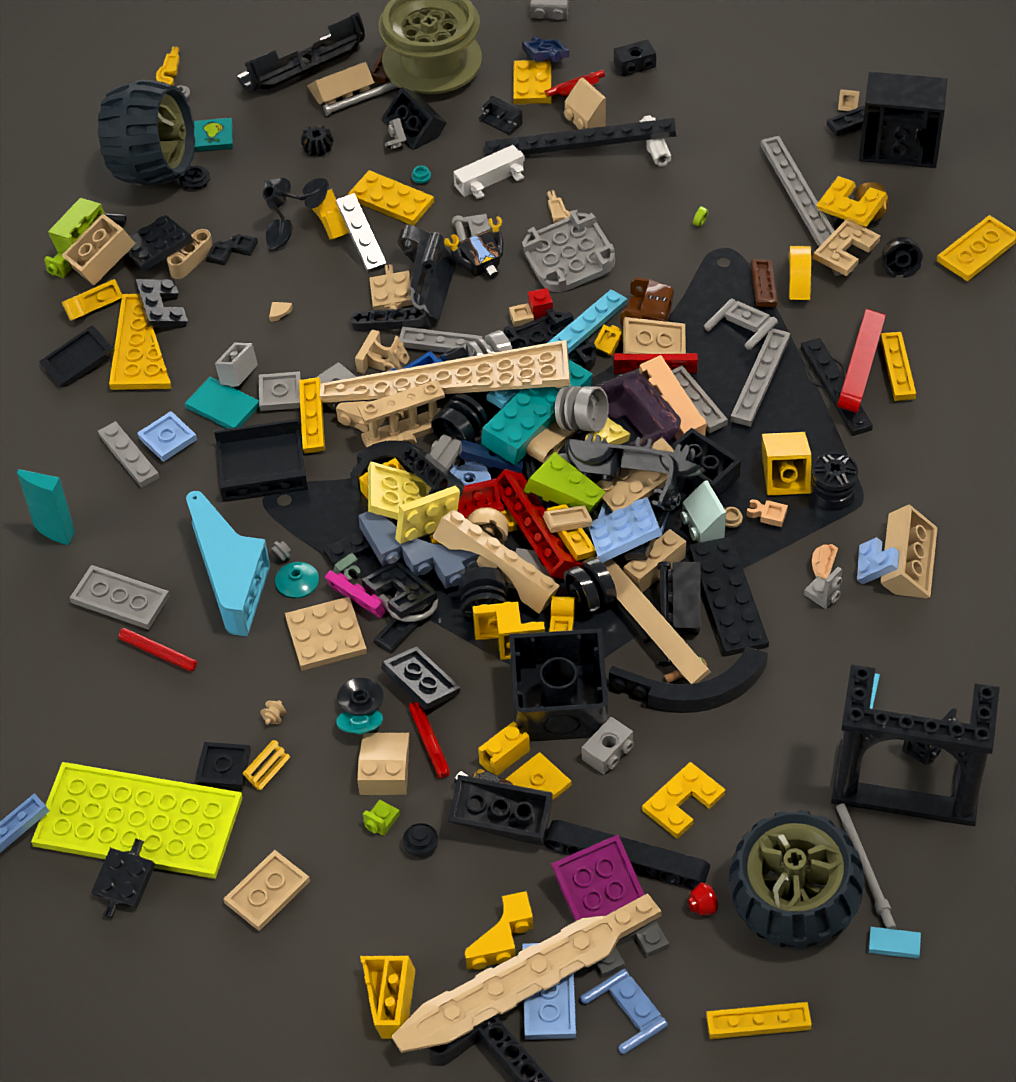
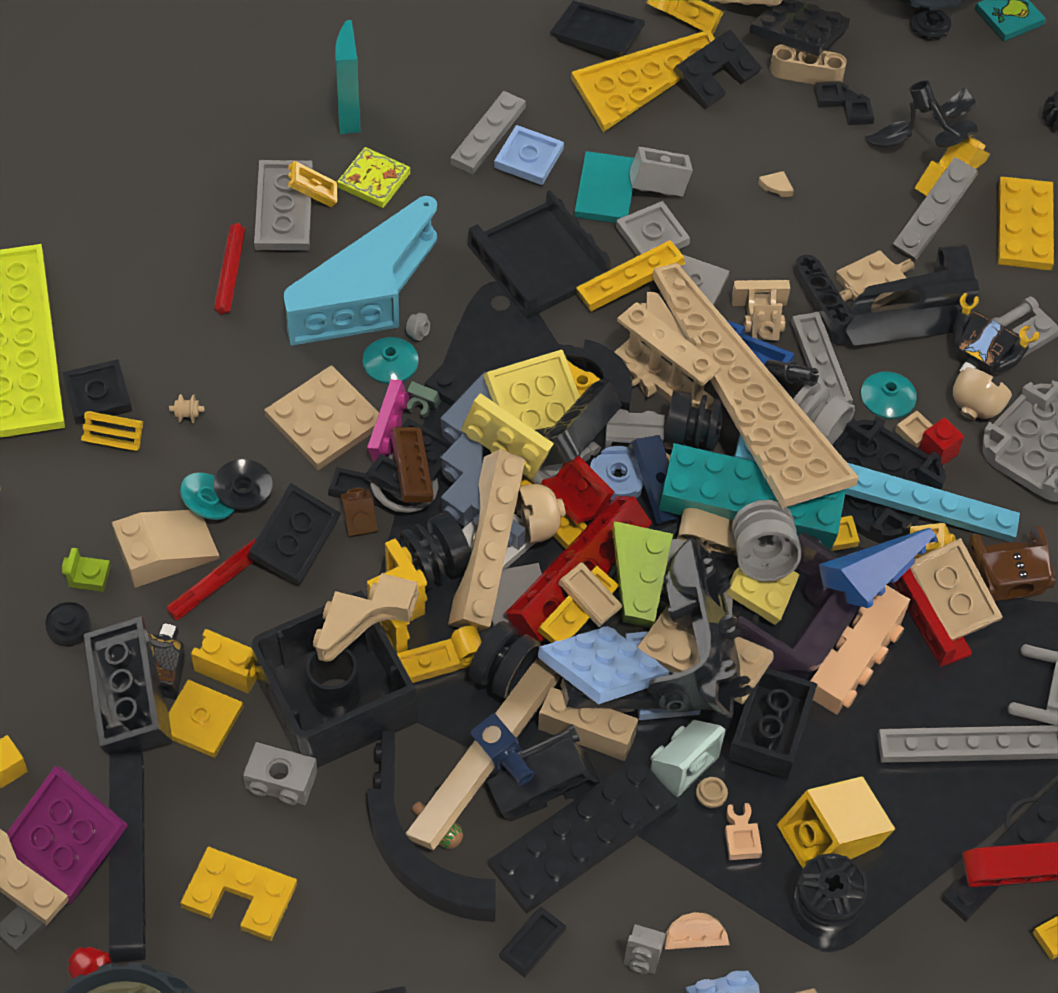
camera: 60 degrees right, 5 degrees up
(114, 570) = (312, 184): none -> yellow tile
(126, 535) = (373, 177): none -> neon yellow tile
(409, 583) = (412, 464): none -> reddish brown plate
(421, 633) = (359, 511): none -> reddish brown bracket
(458, 348) = (792, 372): none -> black axle
(483, 320) = (888, 403): none -> teal dish
(516, 270) = (978, 395): none -> tan cylinder
(532, 642) = (351, 615): none -> tan arch
(631, 364) = (871, 569): none -> wedge
(667, 602) = (504, 751): none -> dark blue bracket
(707, 409) = (887, 678): light grey plate -> none
(791, 649) = (532, 942): none -> black tile

